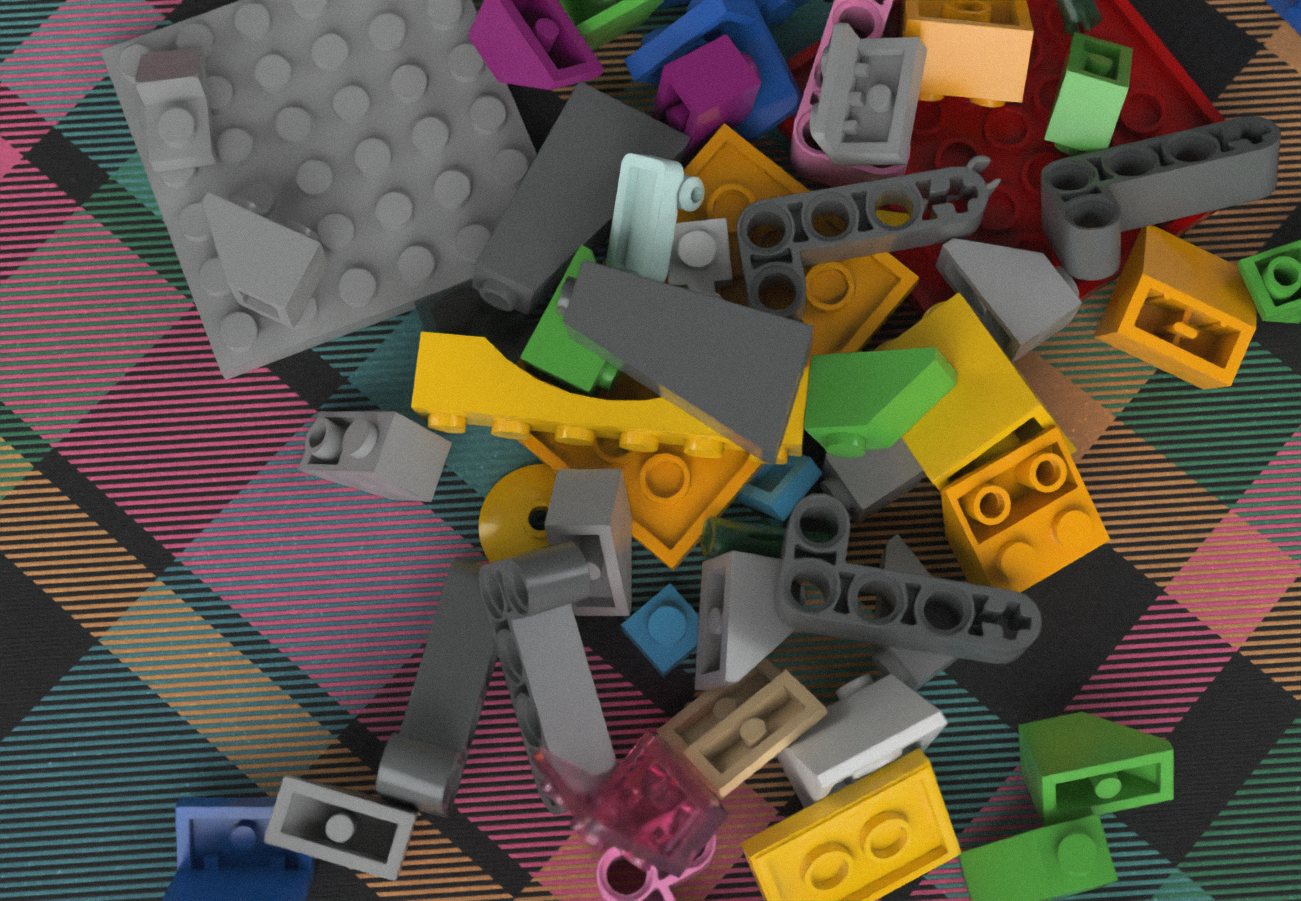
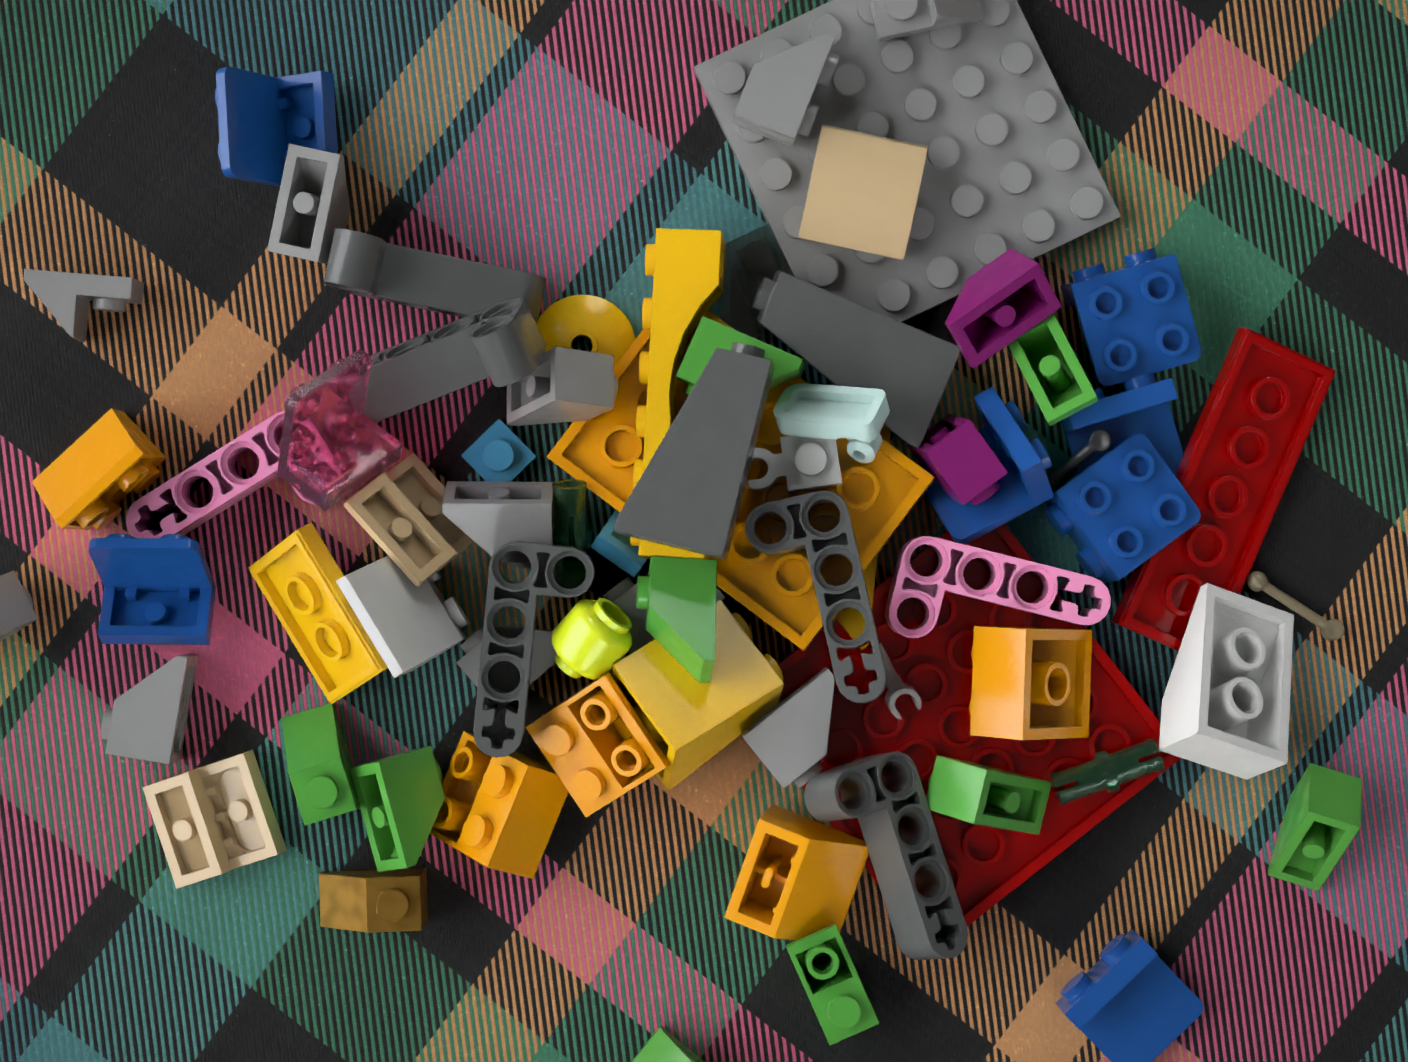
camera: 85 degrees right, 15 degrees up
(376, 454) = (628, 202): light grey slope -> none
(389, 184) = (863, 192): none -> tan slope
(867, 98) = (950, 597): light grey bracket -> none
(898, 511) = (591, 638): none -> neon yellow head
(1094, 649) = (499, 808): none -> light orange slope
(1208, 813) = (374, 900): none -> pearl gold slope

